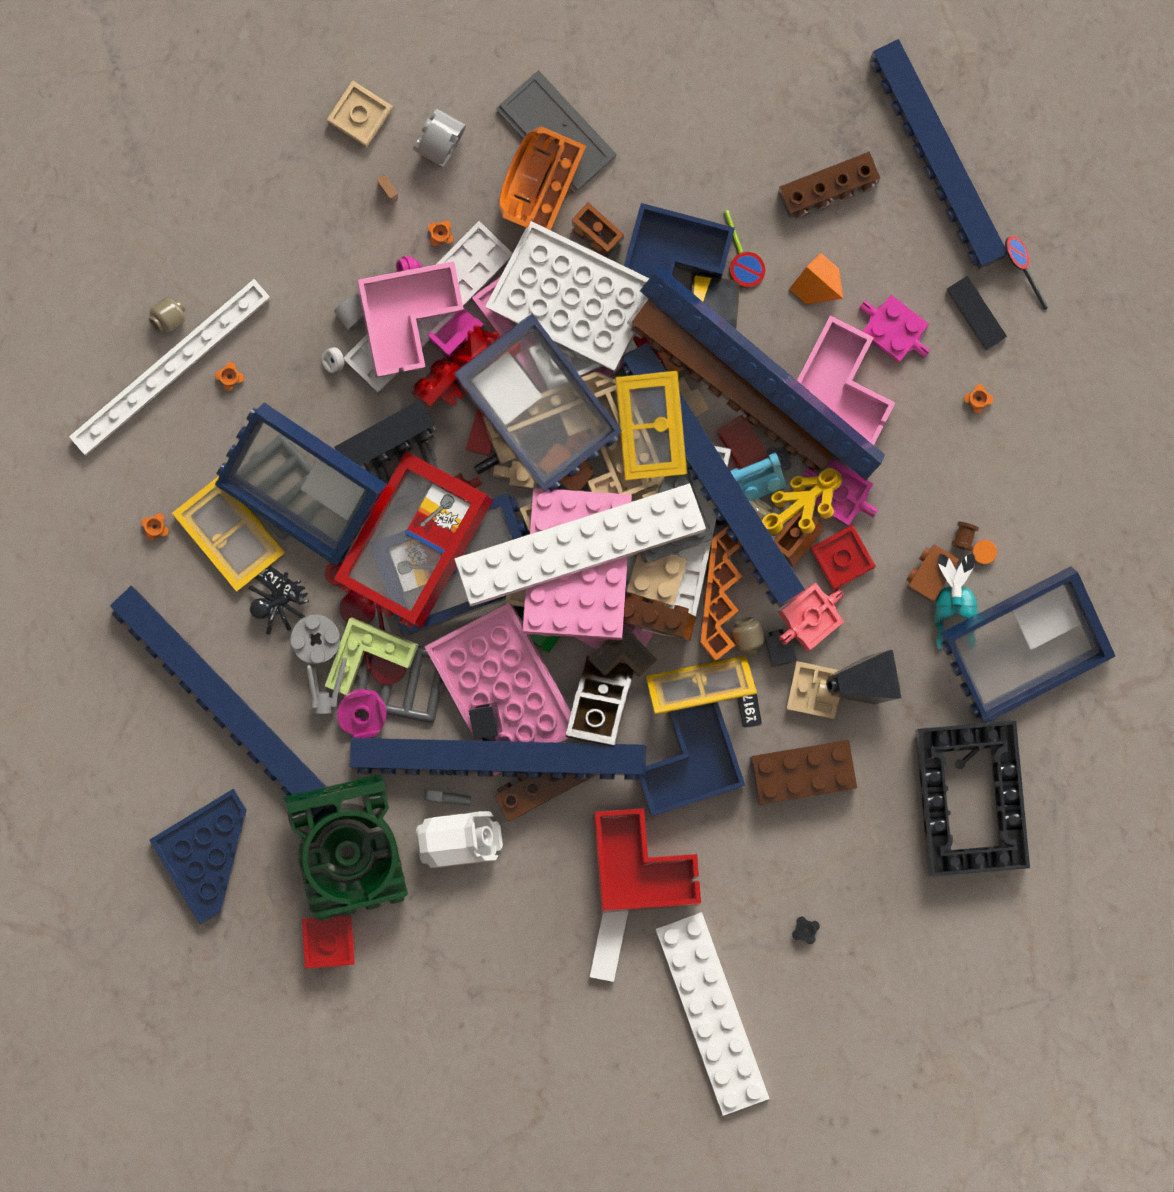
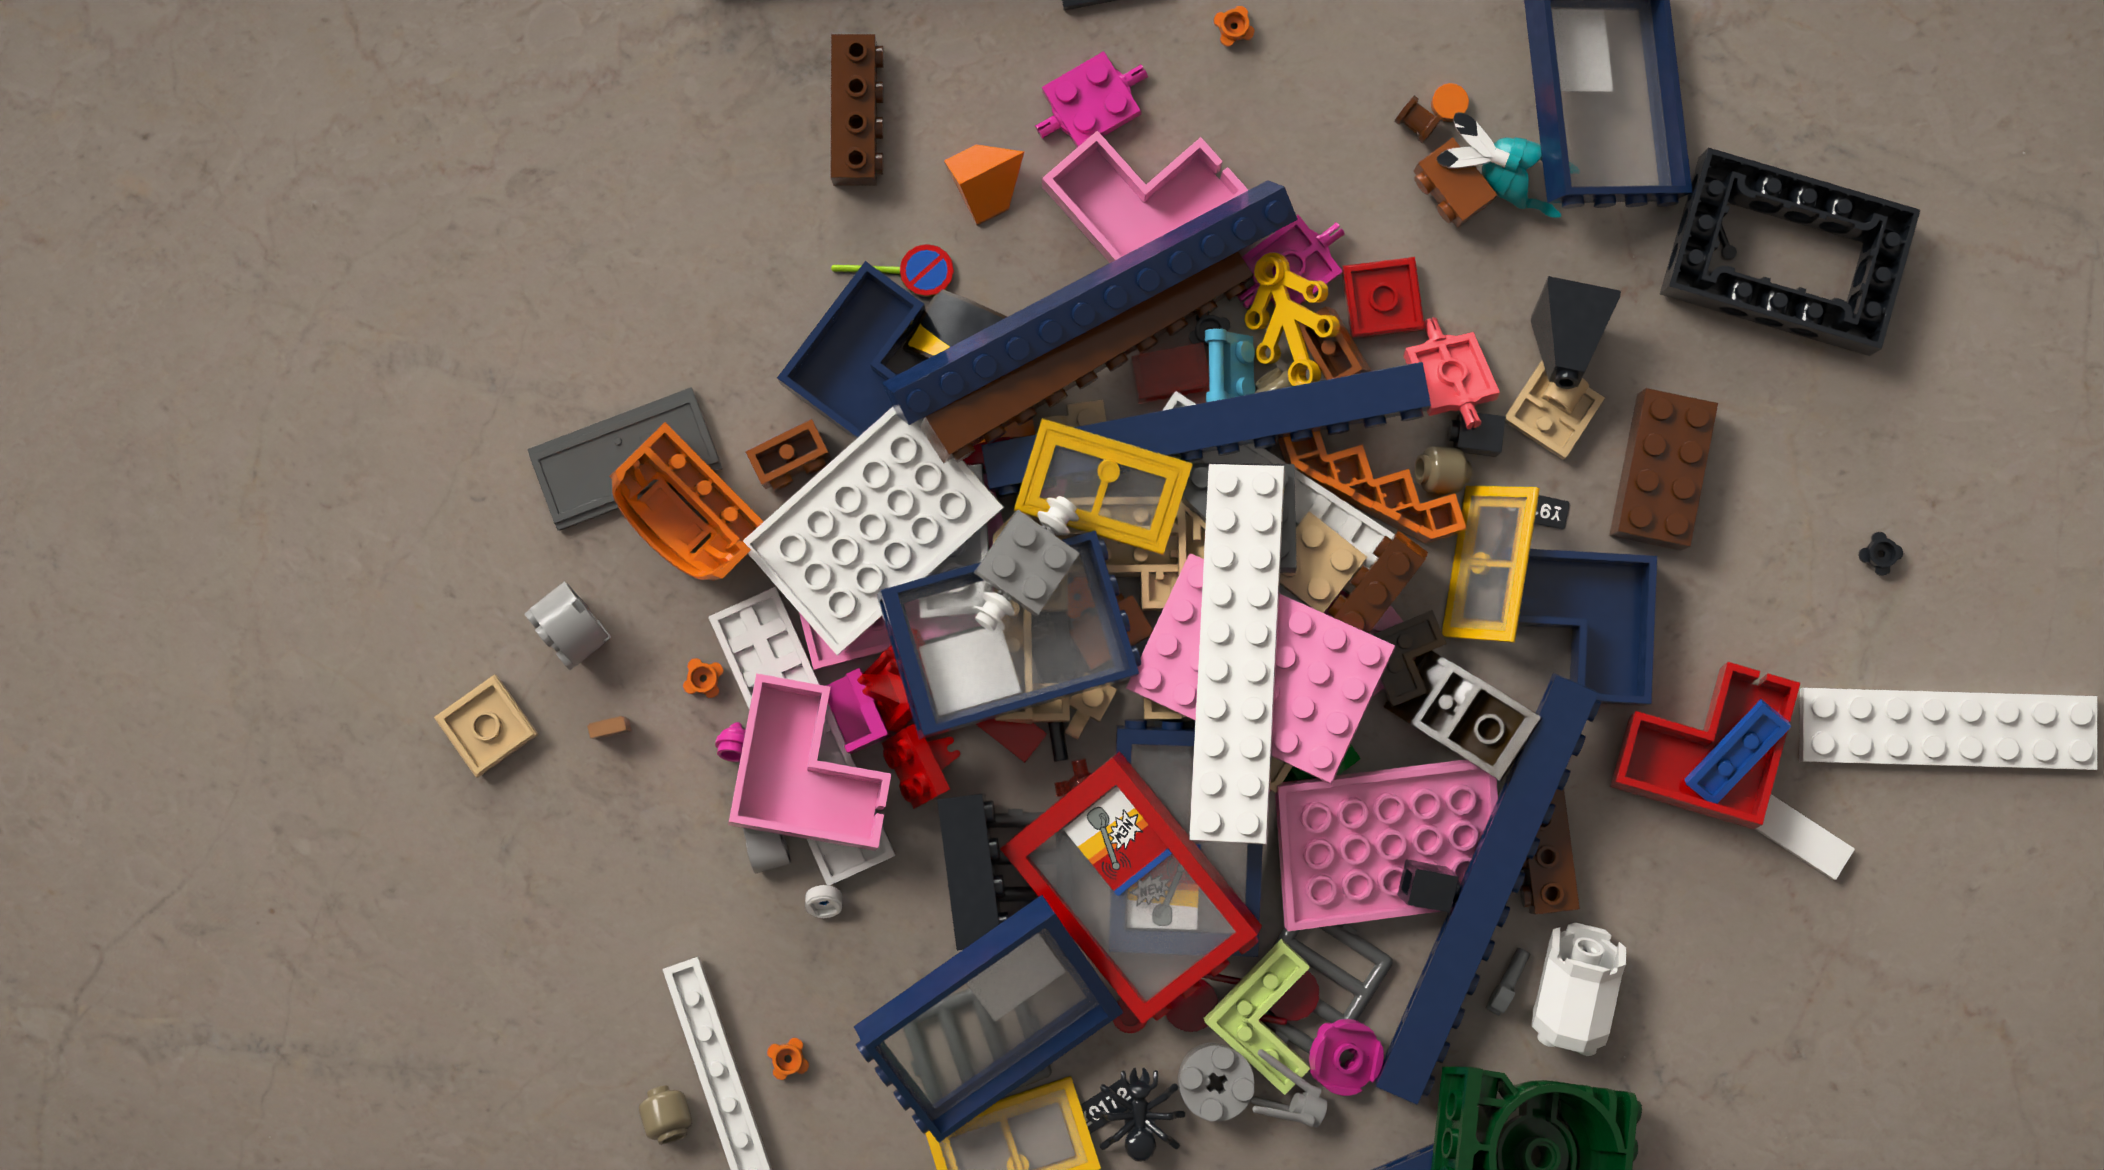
camera: 70 degrees left, 0 degrees up
(584, 395) = (1026, 563): none -> light grey plate
(642, 880) = (1737, 752): none -> blue plate

